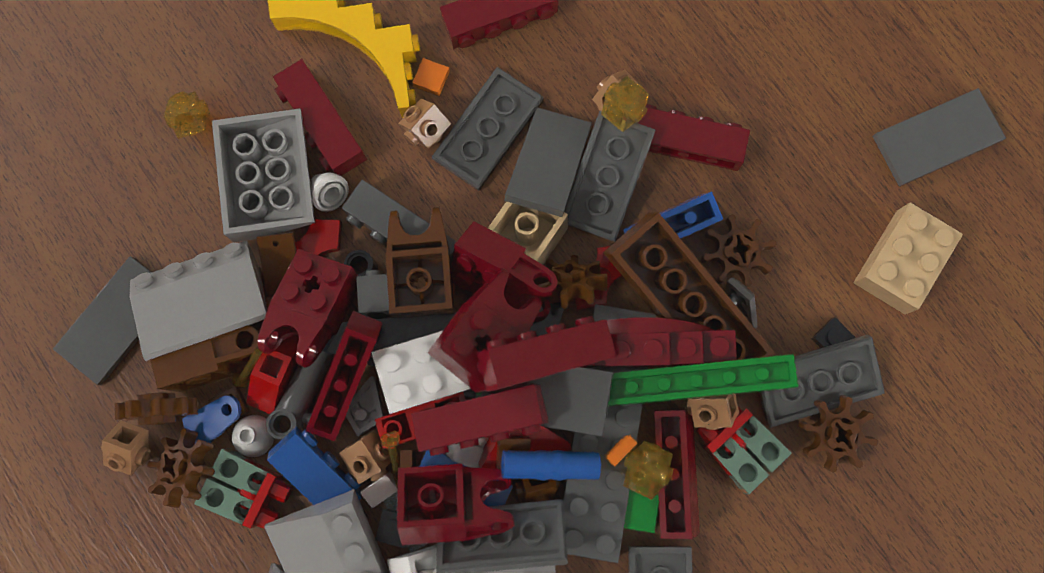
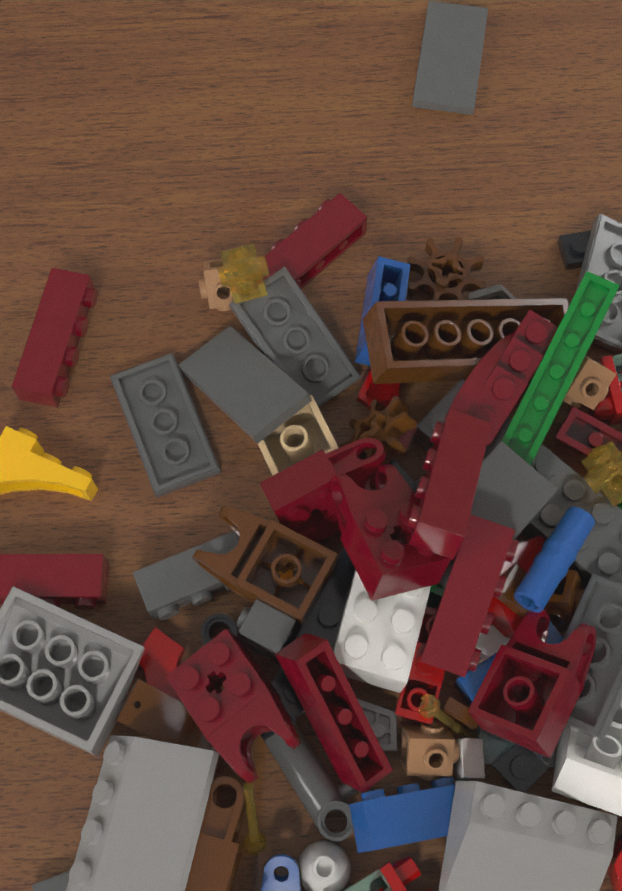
camera: 60 degrees left, 10 degrees down
(272, 376) = (278, 800): red slope -> none
(328, 191) = (117, 615): white brick -> none
(424, 124) = (118, 477): medium nougat brick -> none
(431, 76) = (71, 444): orange tile -> none
(620, 450) = (579, 485): orange tile -> none
(908, 258) = (546, 145): tan brick -> none

